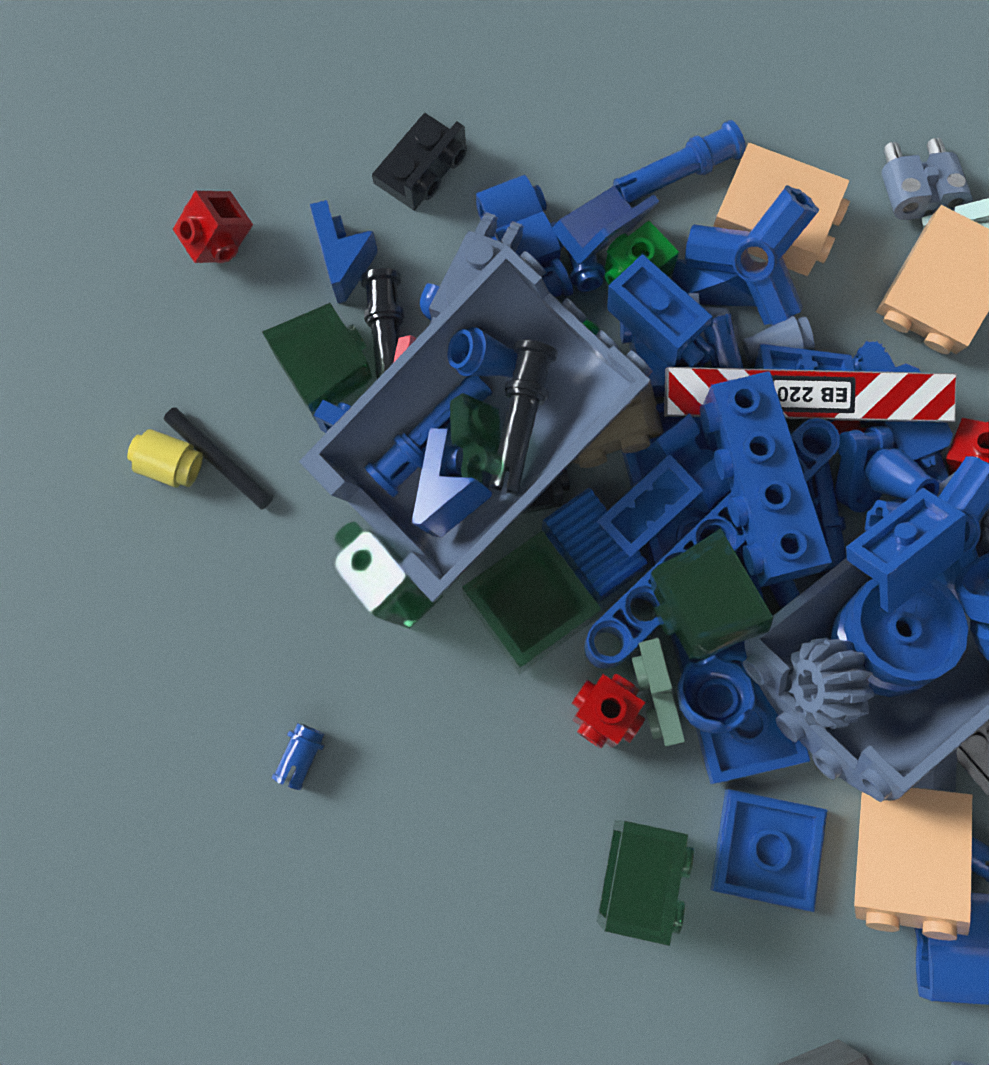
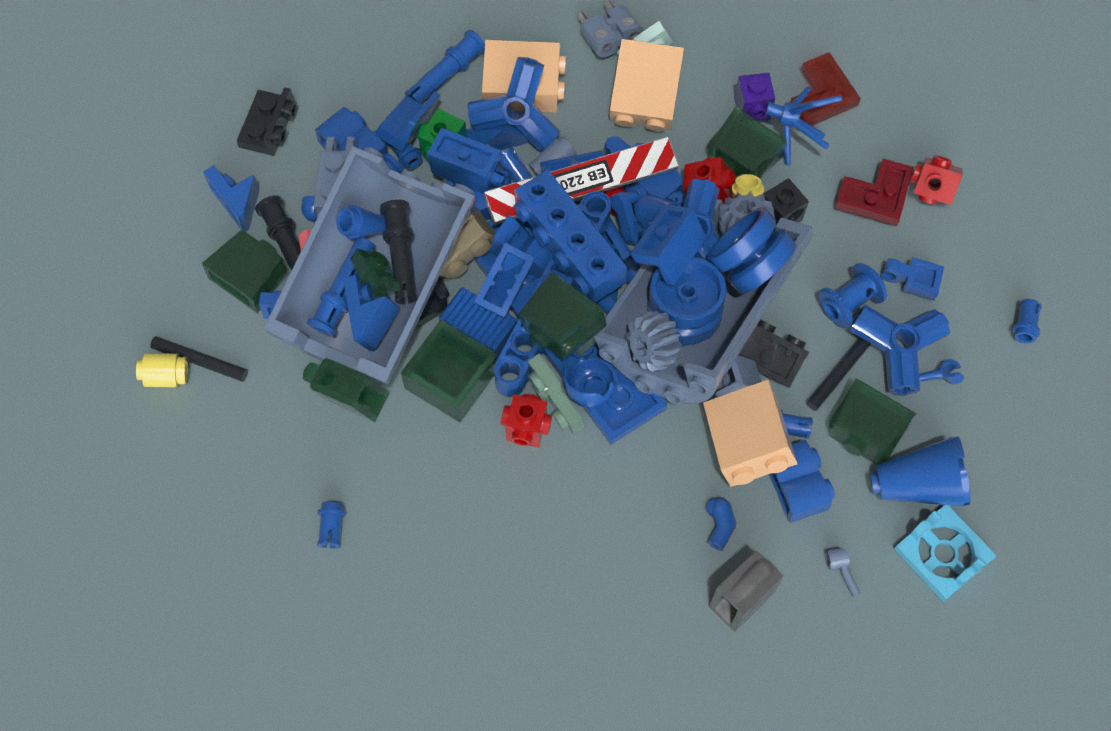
camera: 25 degrees left, 10 degrees down
(212, 226) = (138, 209): red brick -> none
(644, 882) = (586, 508): clear green piece -> none
(769, 850) = (663, 471): blue tile -> none
(829, 959) = (725, 521): none -> blue arm

